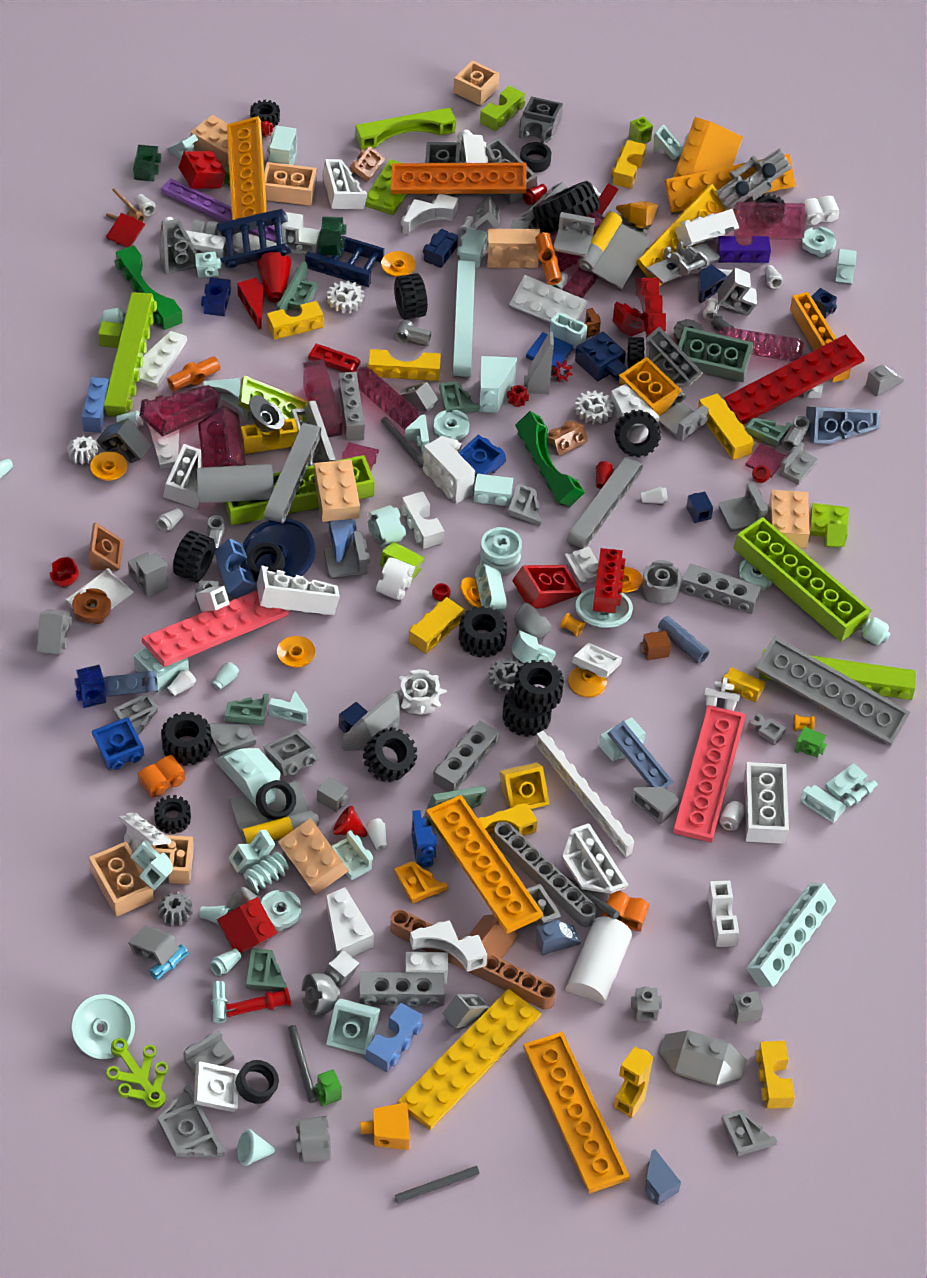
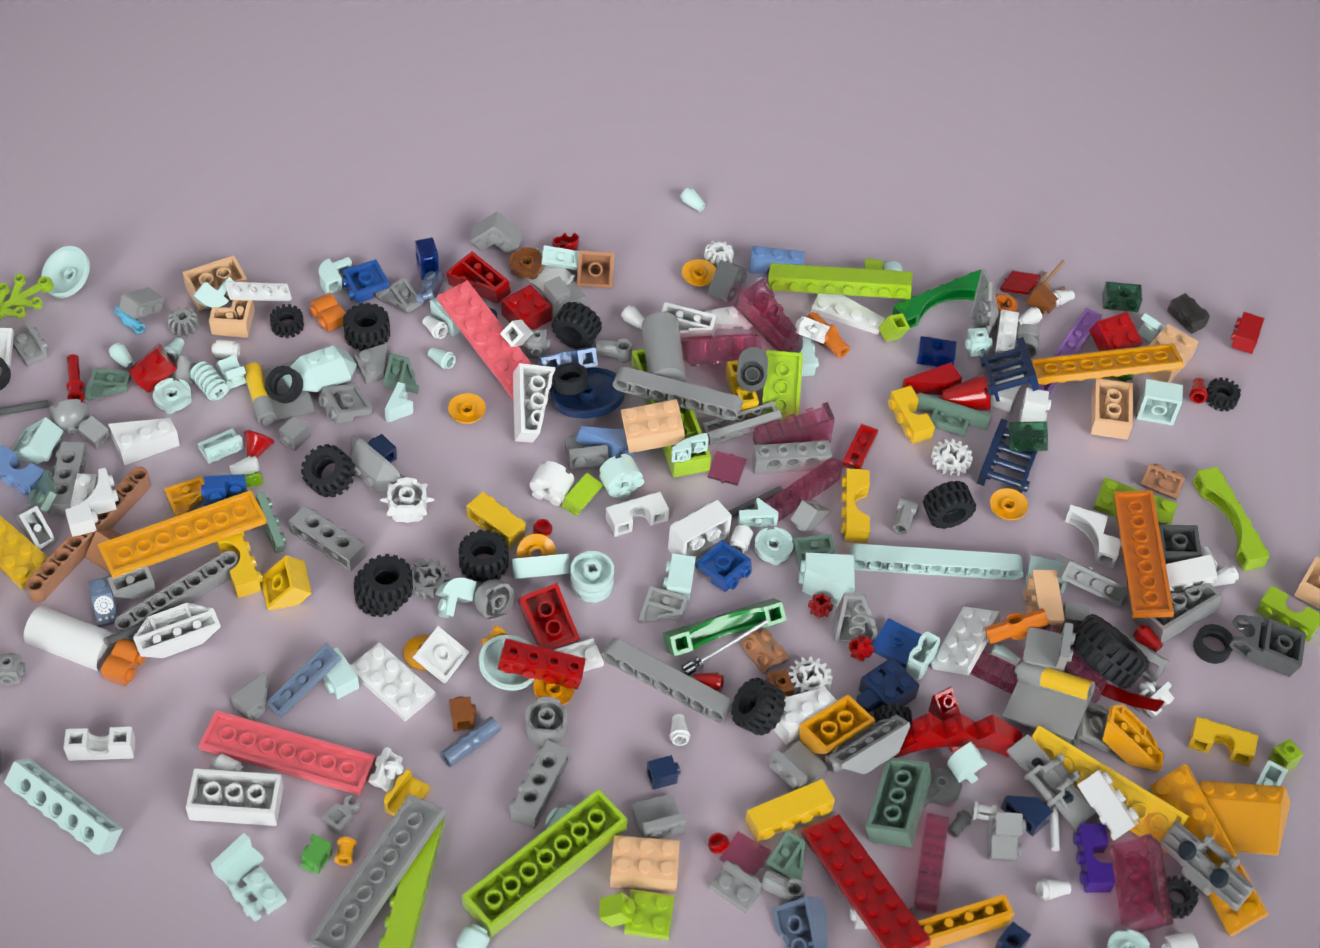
camera: 90 degrees right, 0 degrees up
(90, 574) = (559, 257): none -> light aqua panel
(107, 778) = (332, 274): none -> light aqua brick
(117, 642) = (481, 276): none -> red wedge
(150, 241) = (1003, 299): none -> orange gear
(153, 215) = (1042, 299): none -> dark orange brick
(161, 604) = (527, 306): none -> red brick
(167, 121) = (1188, 313): none -> clear smoke brick
(190, 321) = (894, 327): none -> lime brick
(194, 85) = (1247, 332): none -> red brick
(203, 373) = (811, 329): none -> white hips
(216, 864) = (225, 349): none -> white brick
(219, 1002) = (82, 351): light aqua axle -> none
(313, 856) = (219, 412): light nougat brick -> none
(341, 187) = (1117, 453): white wedge -> none
(362, 465) = (694, 444): none -> light aqua slope
(393, 824) = (253, 480): none -> clear neon green pin
(431, 999) = (44, 492): none -> sand green wing
(440, 248) = (1040, 542): dark blue brick -> none
(587, 797) = (268, 636): white plate -> none
(589, 488) = (690, 667): none -> piece
(593, 322) = (938, 684): dark orange bracket -> none
(604, 426) = (782, 680): none -> dark orange brick
(623, 700) = (392, 681): none -> white plate
(678, 307) = (966, 762): none -> light aqua brick

